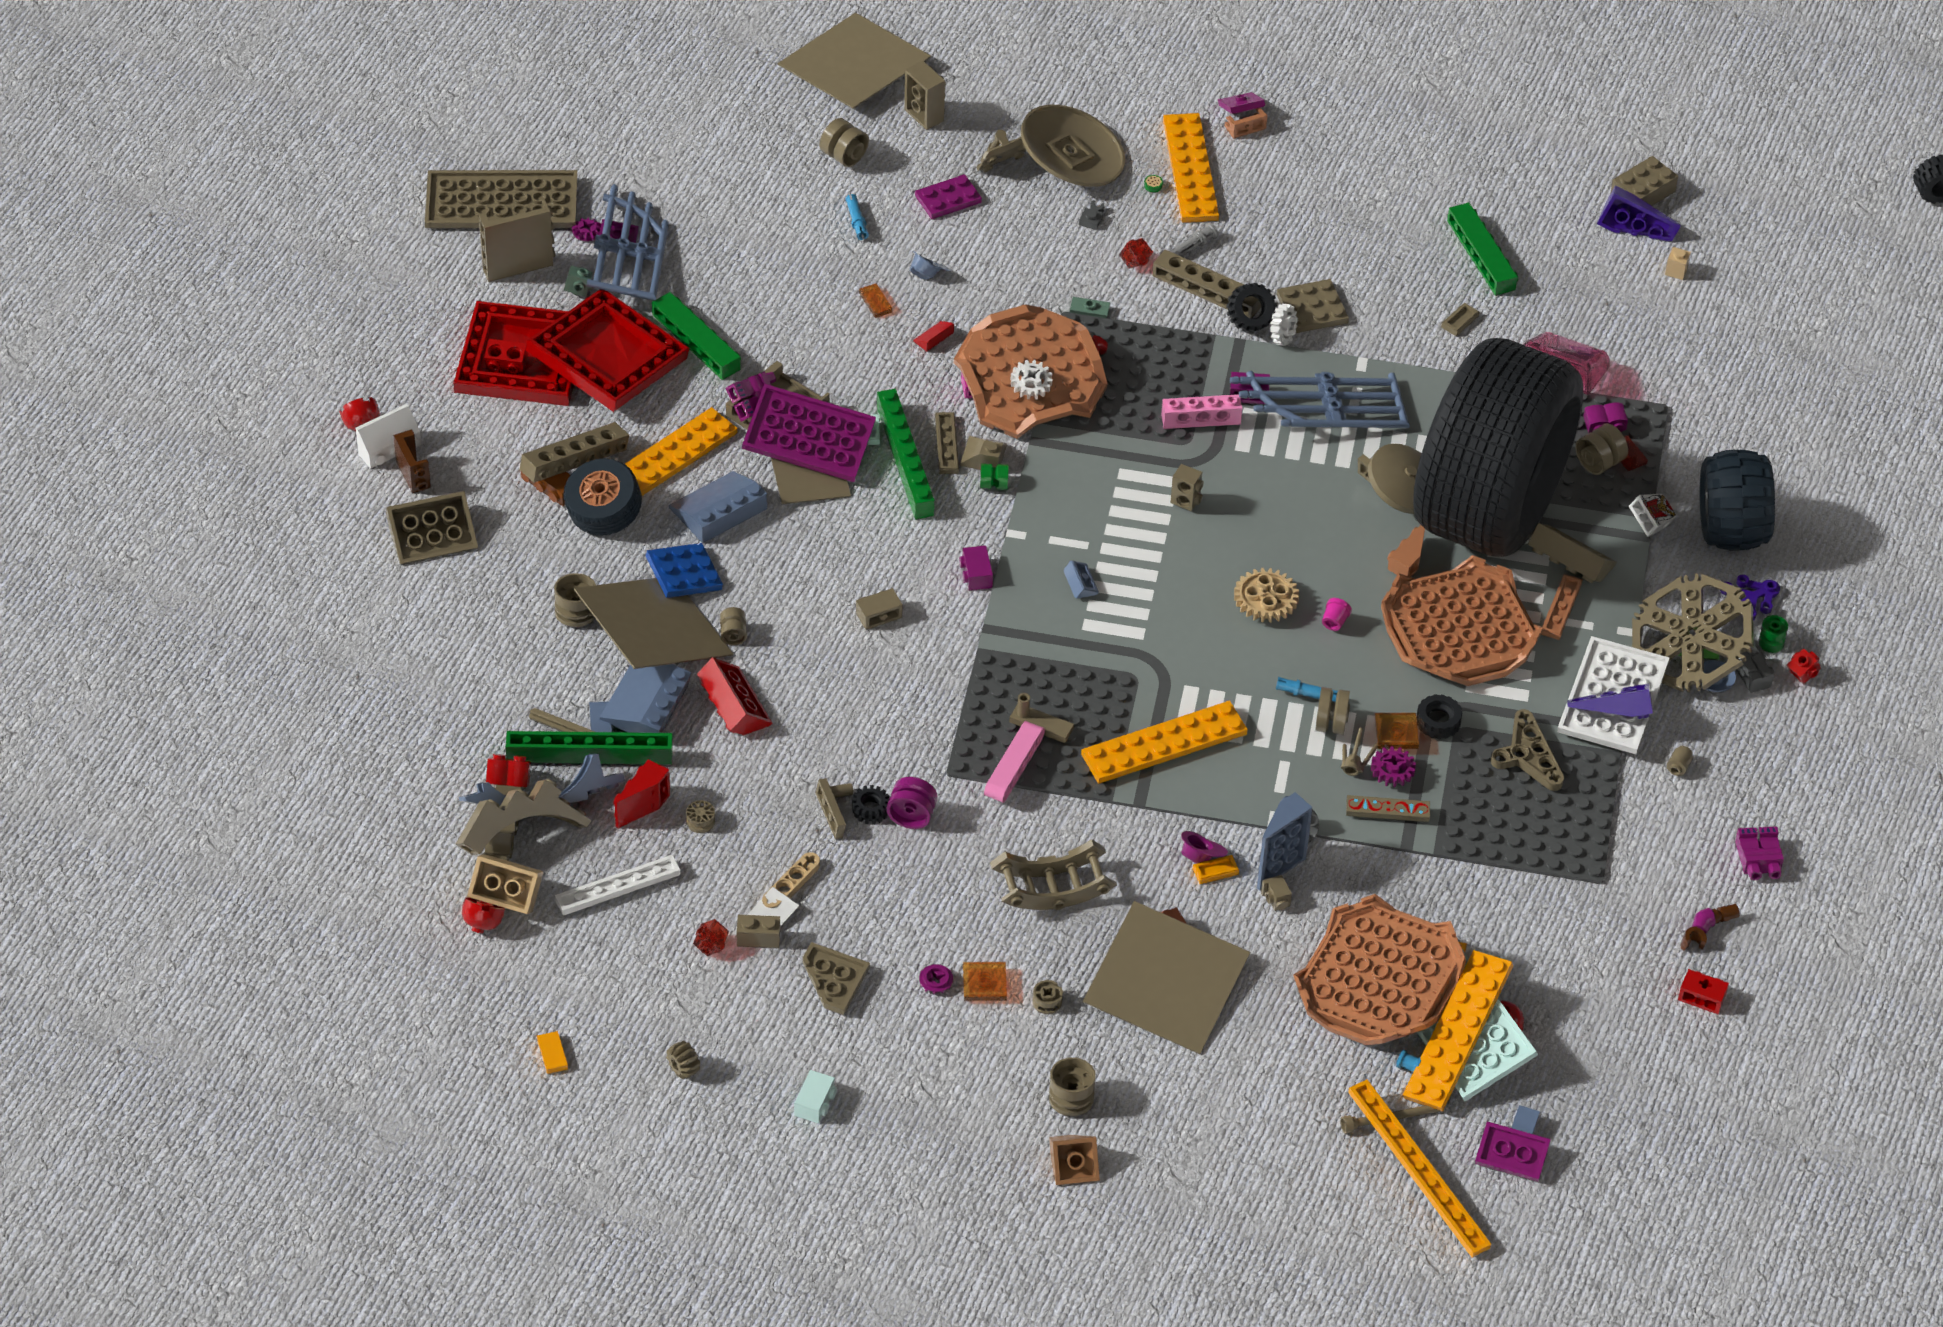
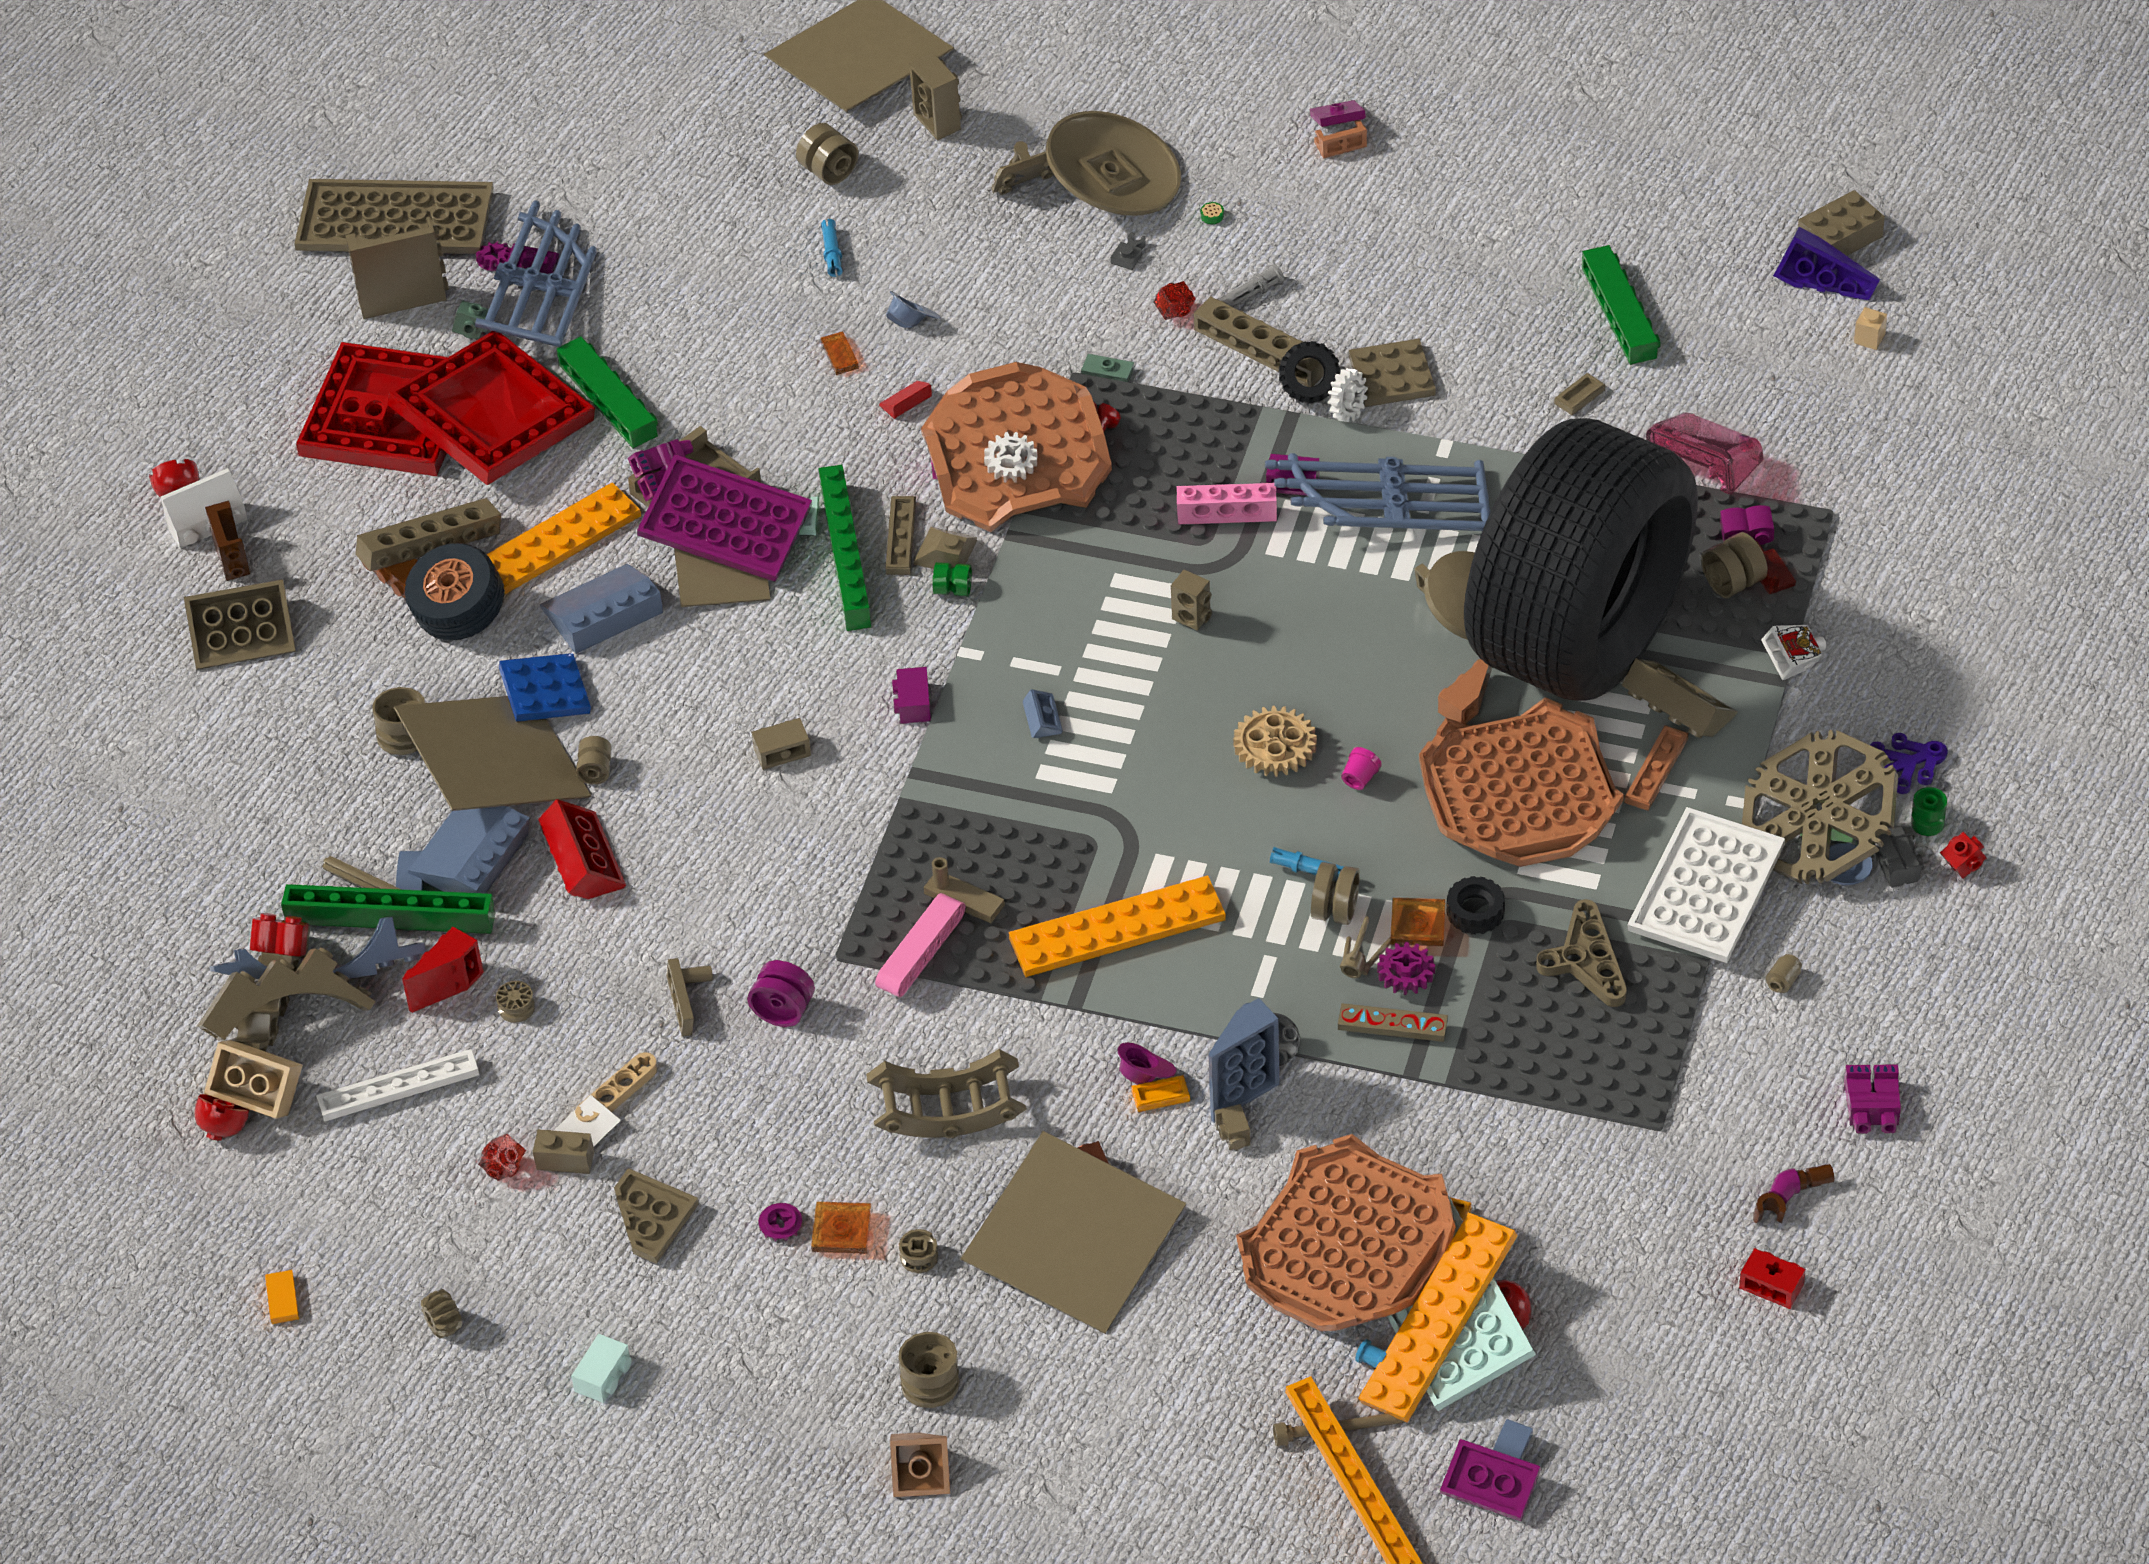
camera: 10 degrees right, 0 degrees up
(870, 795) = (729, 982): black tyre -> none
(948, 196) = (950, 224): magenta plate -> none
(1190, 168) = (1262, 194): light orange plate -> none
(1630, 702) = (1724, 895): dark purple wedge -> none
(1737, 500) = (1897, 636): black wheel -> none

